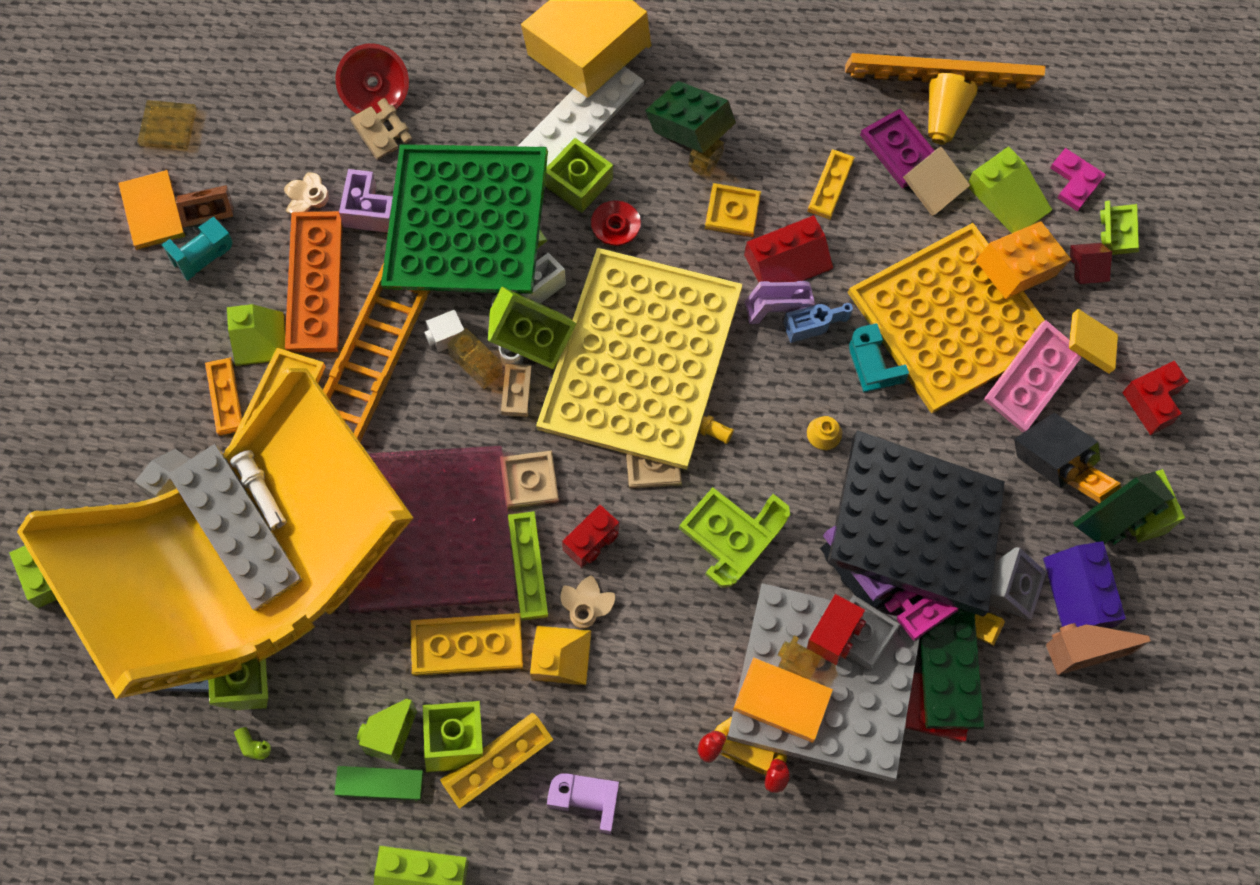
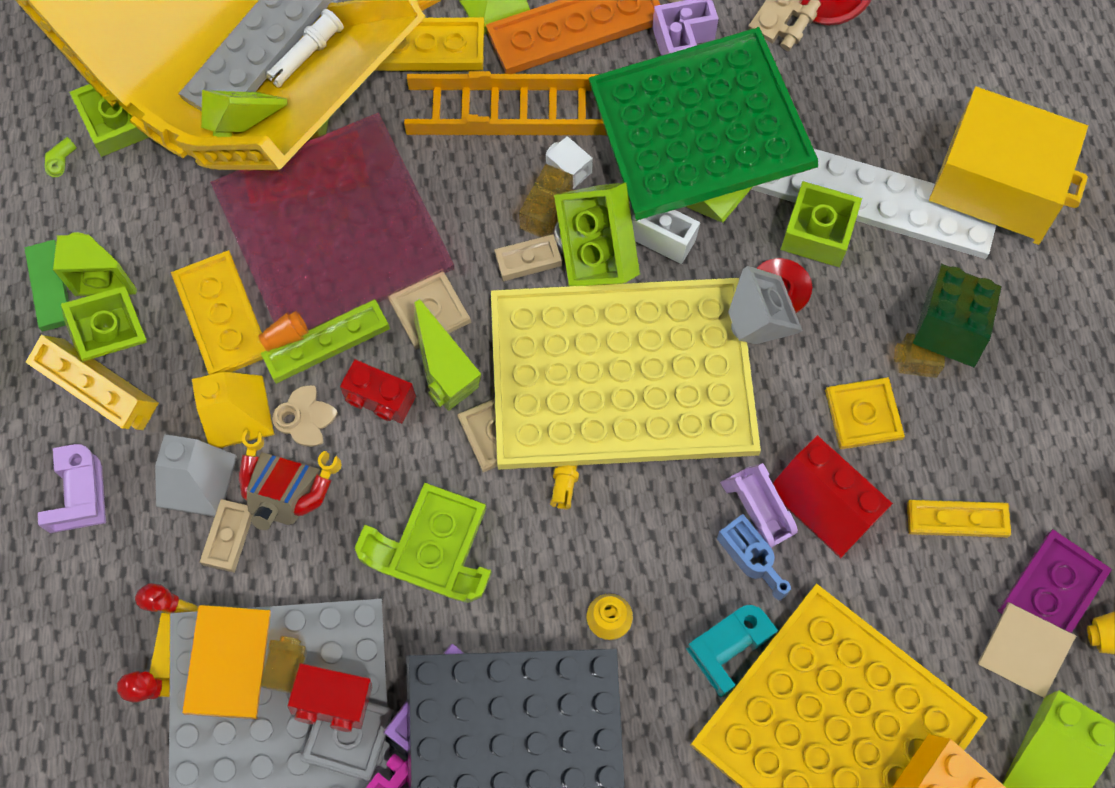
camera: 75 degrees right, 0 degrees up
(304, 555) = (236, 110): none -> lime slope
(513, 589) = (284, 331): none -> orange cone
(588, 477) = (446, 366): none -> lime slope
(608, 702) = (192, 475): none -> light grey slope
(636, 239) = (762, 308): none -> light grey slope
(646, 631) = (280, 487): none -> torso
(667, 687) = (227, 536): none -> tan plate

